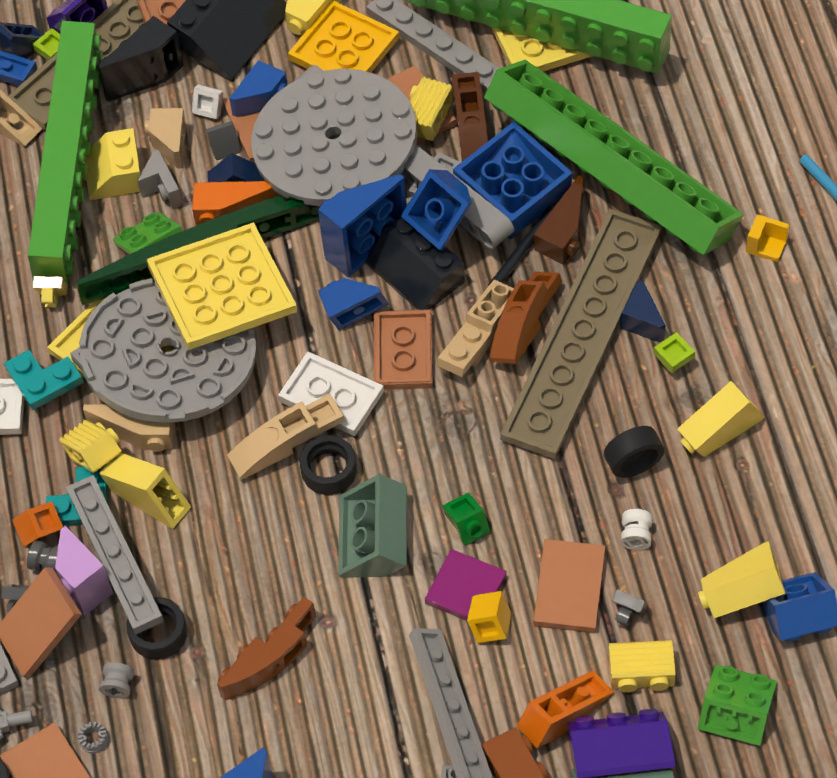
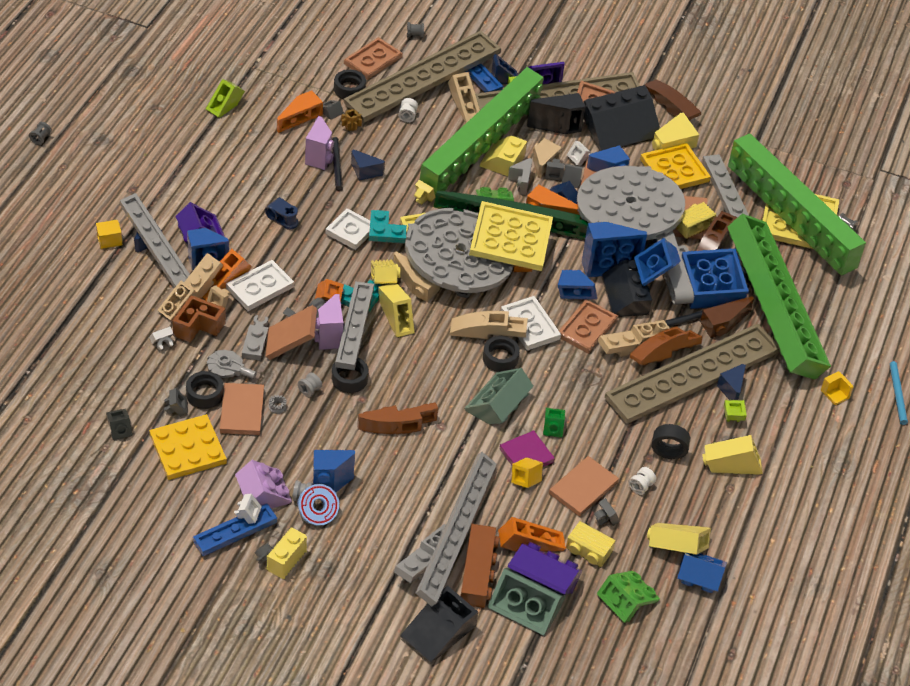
camera: 25 degrees right, 10 degrees down
(196, 146) = (555, 170): none -> dark grey tile

